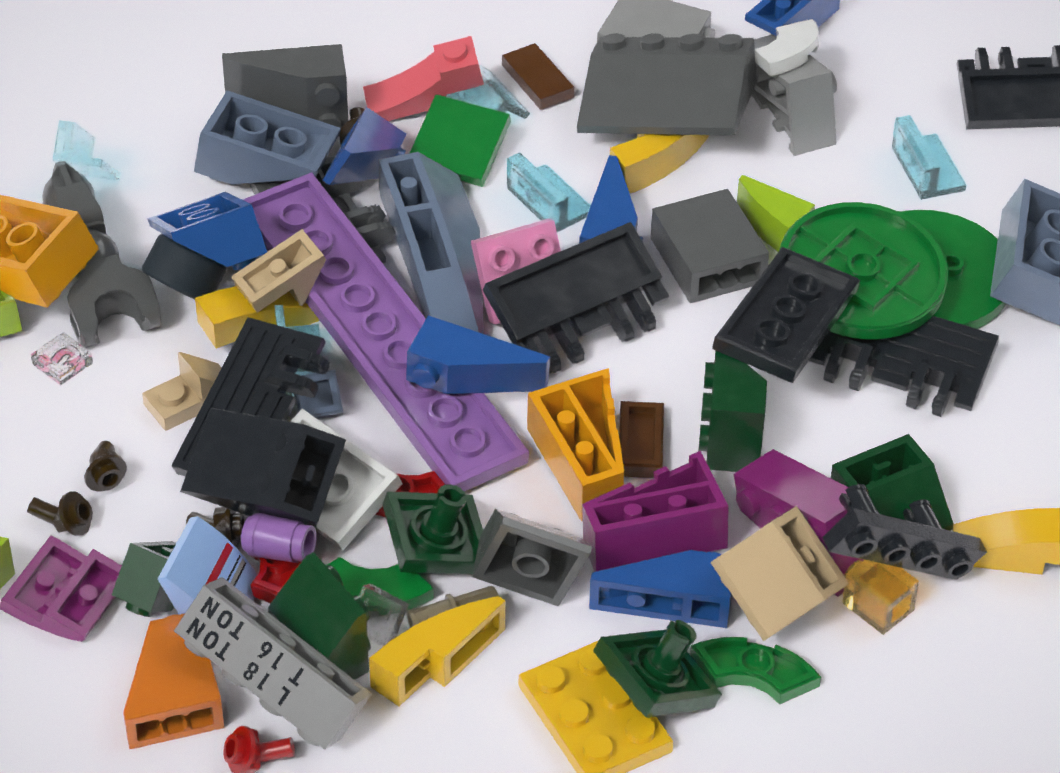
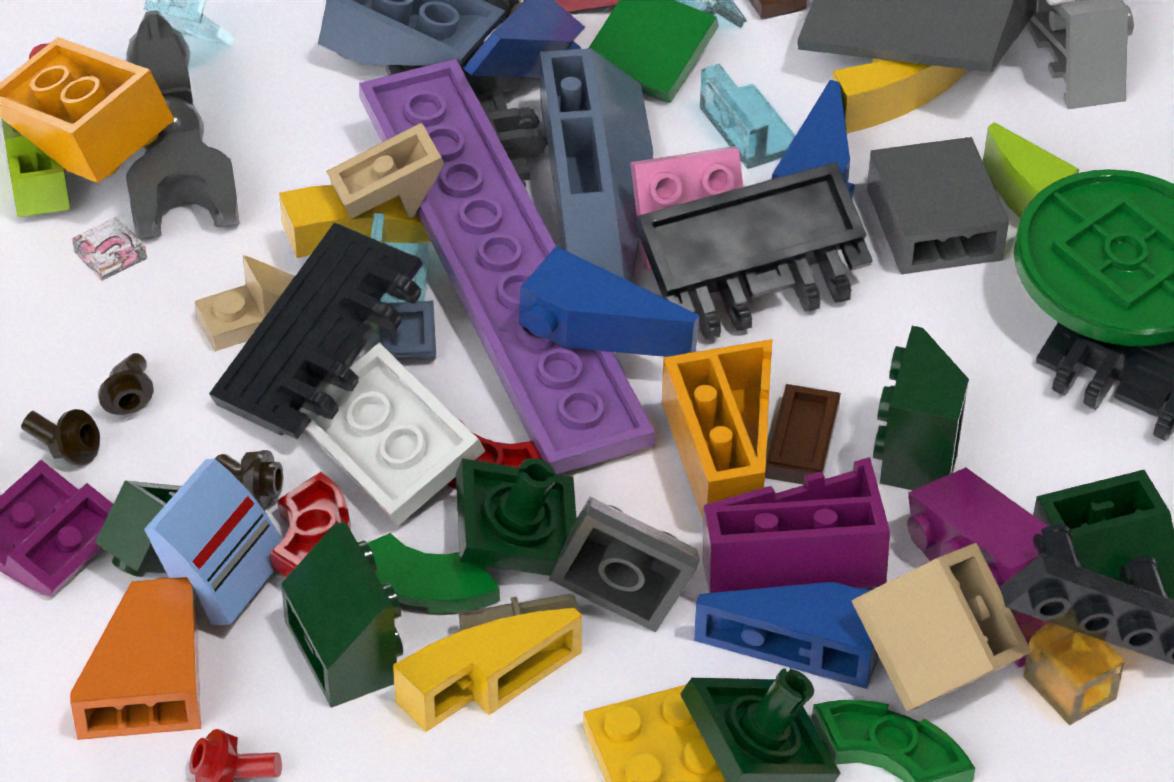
camera: 10 degrees right, 0 degrees up
(182, 268) = (274, 154): black wheel -> none
(216, 228) = (319, 113): blue slope -> none
(263, 466) = (312, 410): black slope -> none
(272, 663) = (267, 655): light grey brick -> none
(277, 538) = (312, 498): medium lavender piece -> none
(385, 614) = (424, 610): clear tile -> none
(786, 314) = (1010, 299): black tile -> none

